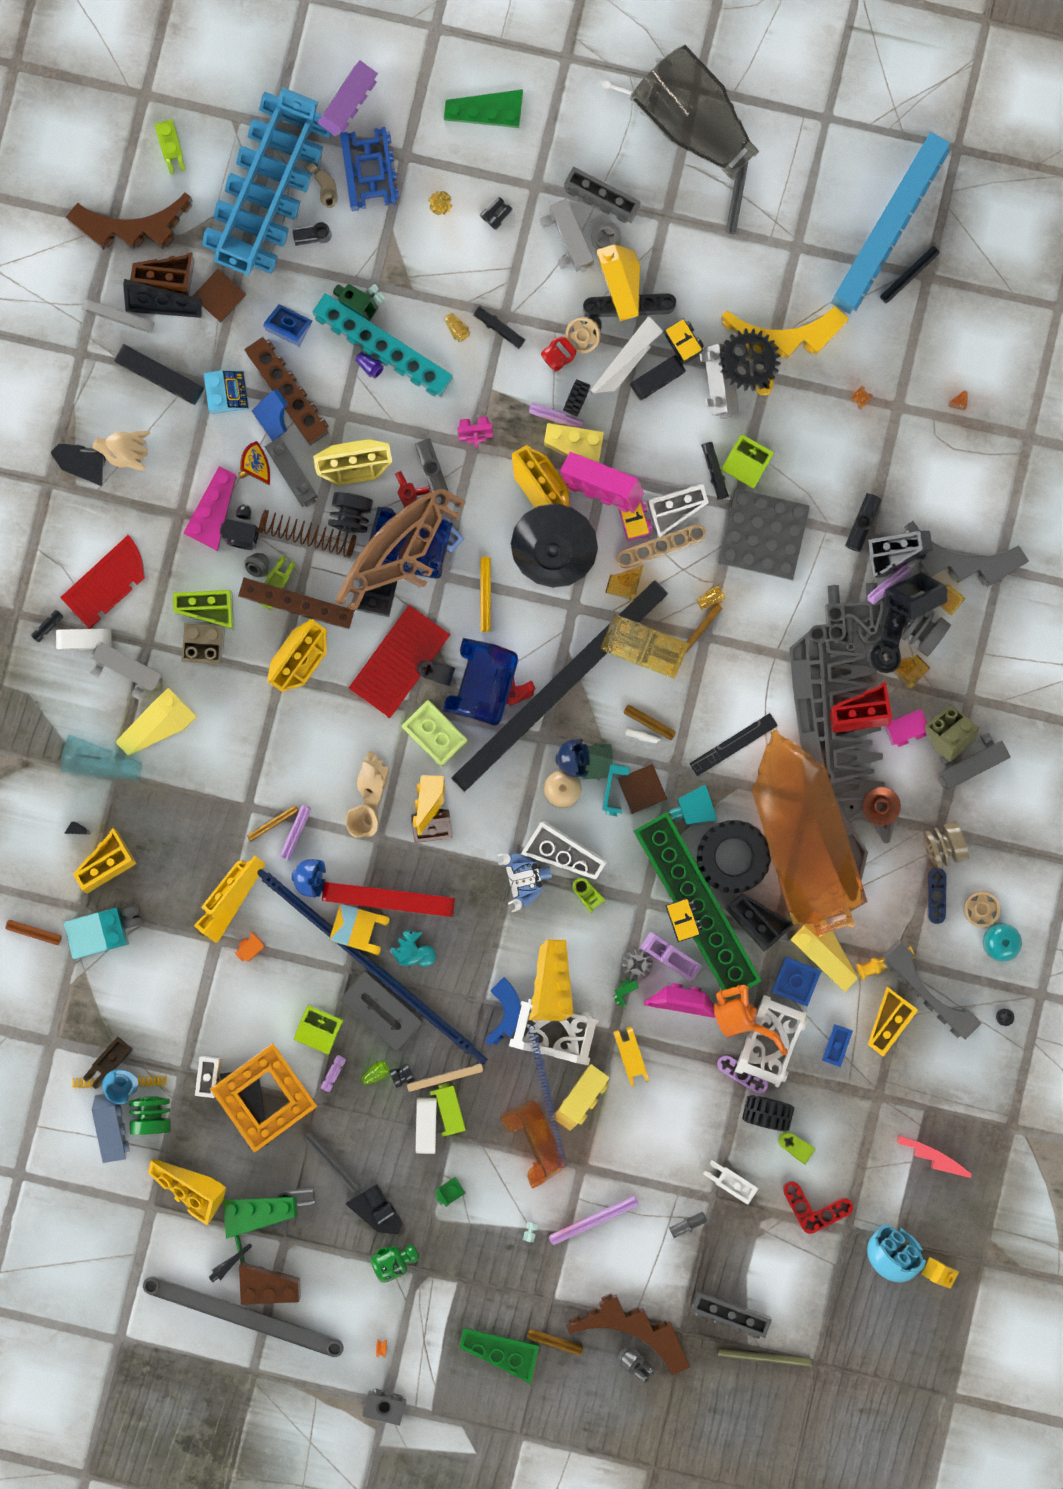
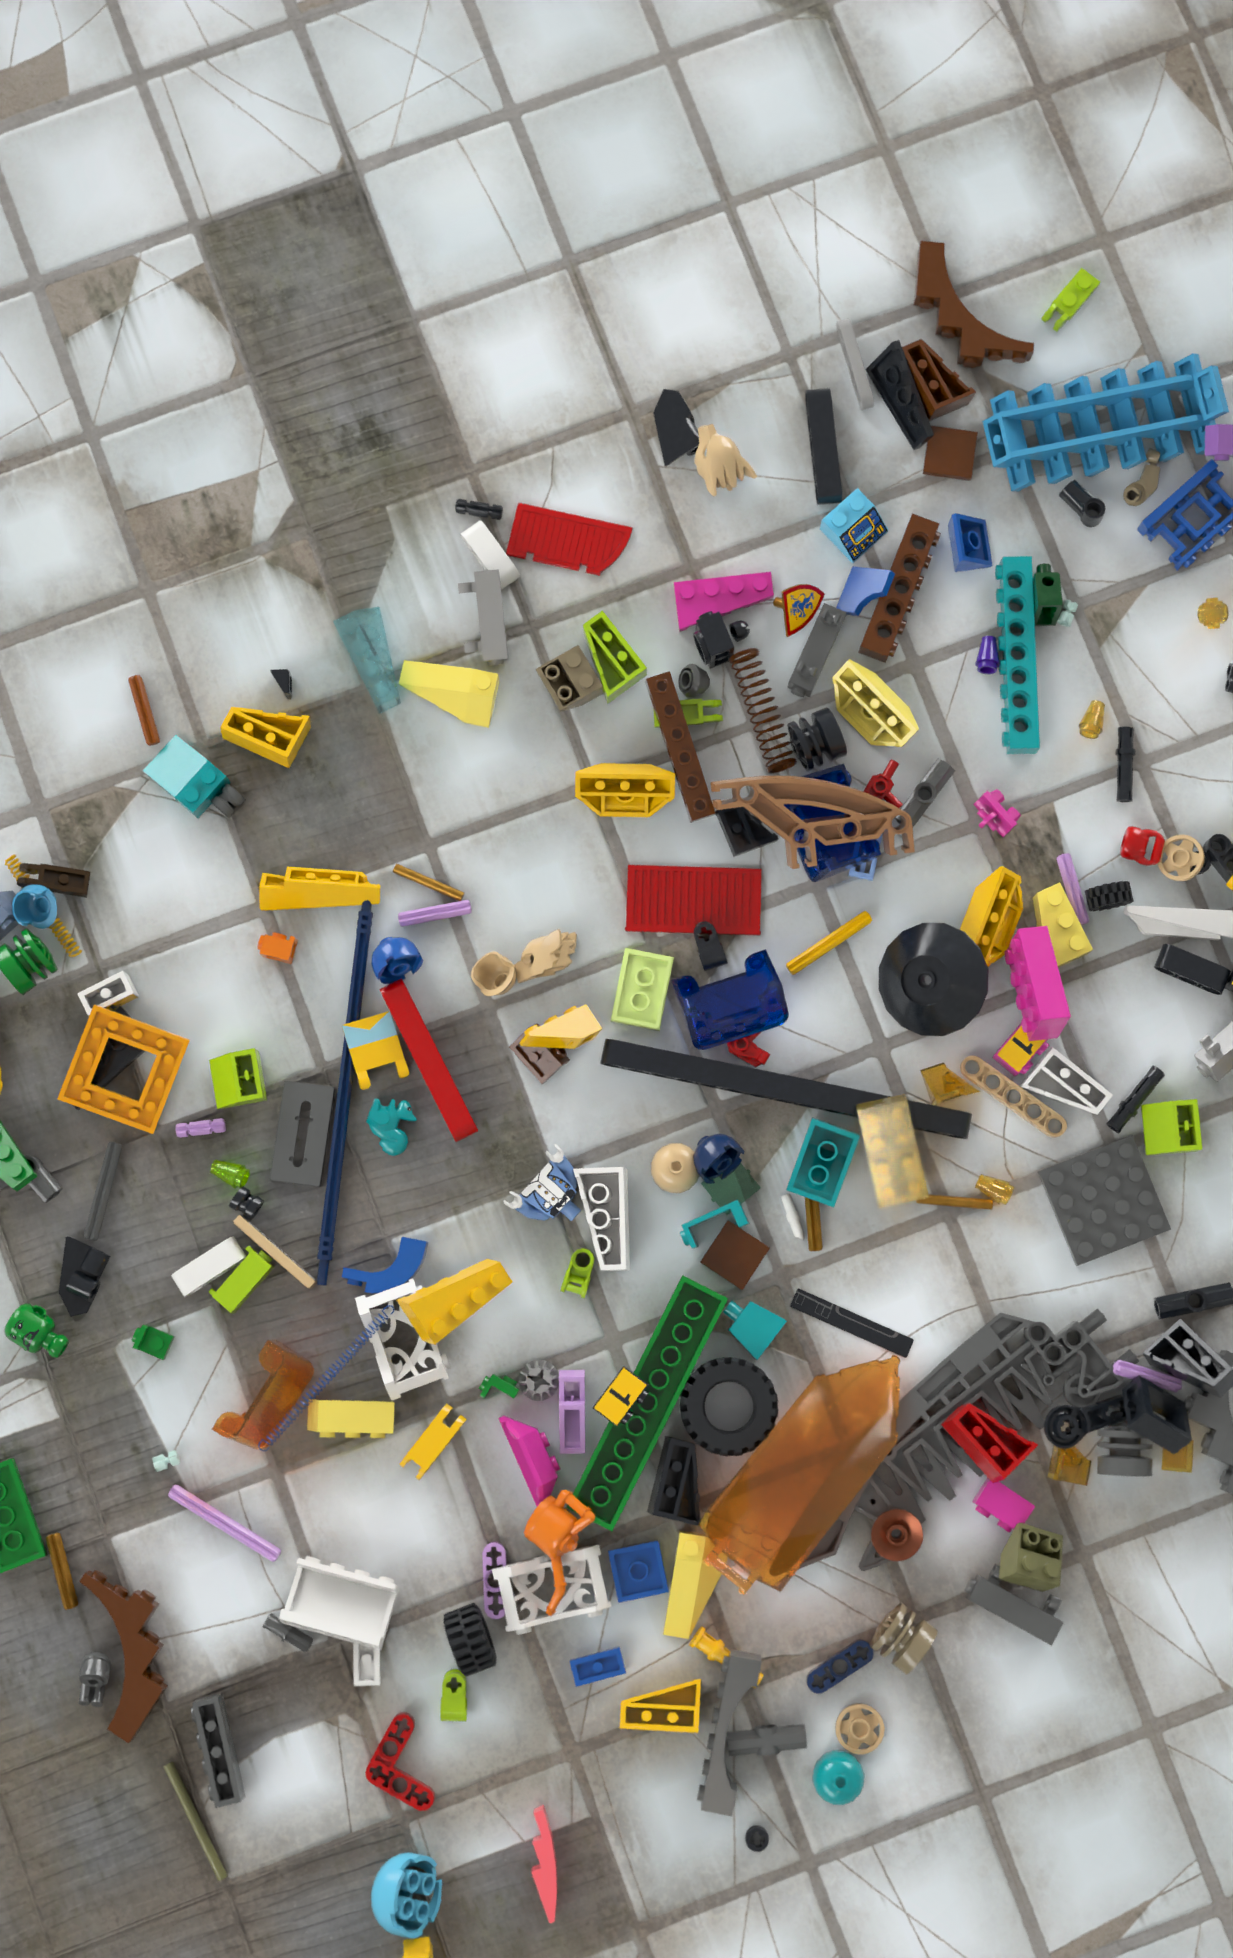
camera: 55 degrees right, 5 degrees down
(622, 693) = (823, 1162): none -> teal slope
(691, 1179) = (340, 1603): none -> white panel
(950, 971) = (766, 1740): none -> dark grey piece

